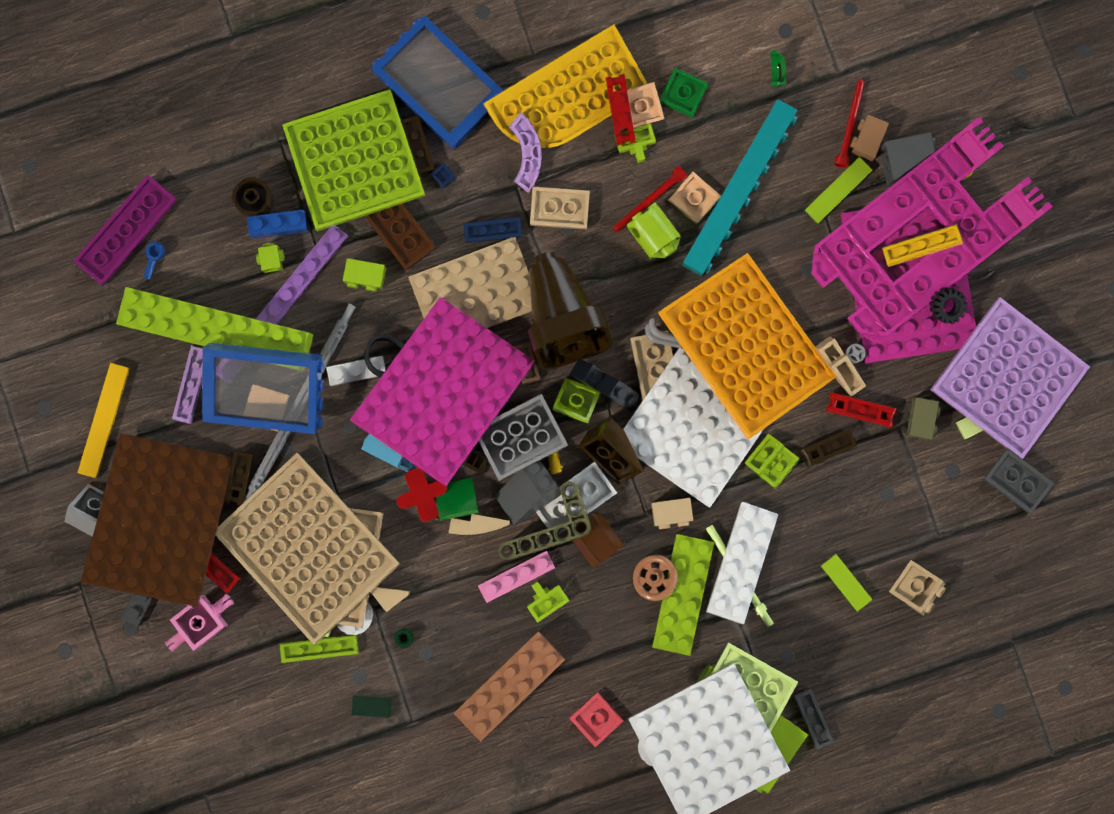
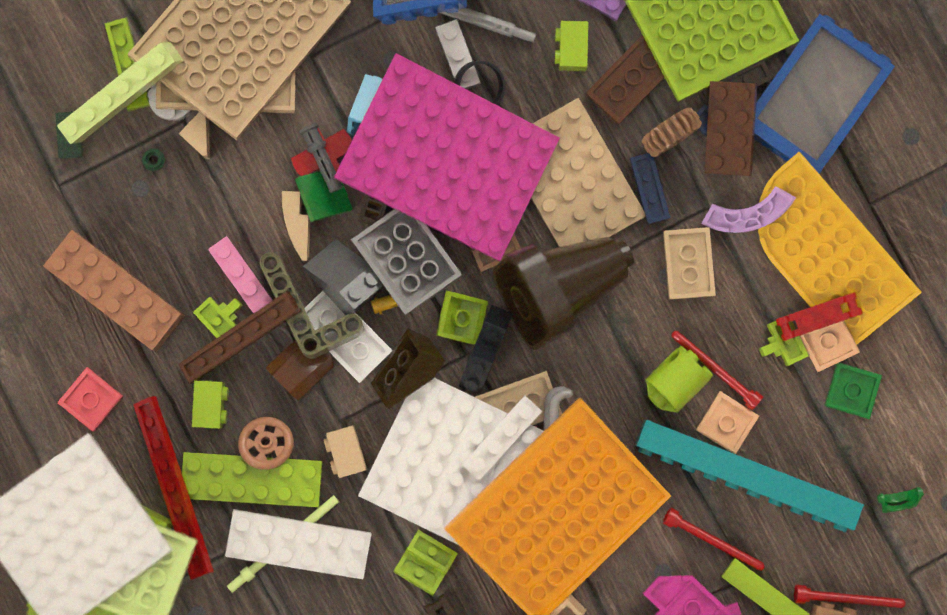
camera: 75 degrees right, 0 degrees up
(346, 654) = (120, 92): none -> yellowish green brick
(416, 498) = (317, 147): none -> dark grey pin
(450, 204) = (671, 132): none -> medium nougat gear
(454, 155) = (730, 128): none -> reddish brown plate
(565, 586) = (239, 337): none -> reddish brown tile
(616, 620) = (209, 404): none -> lime brick
(674, 660) = (172, 482): none -> red plate
(680, 381) = (502, 438): none -> white plate
(765, 254) = (674, 519): none -> red piece

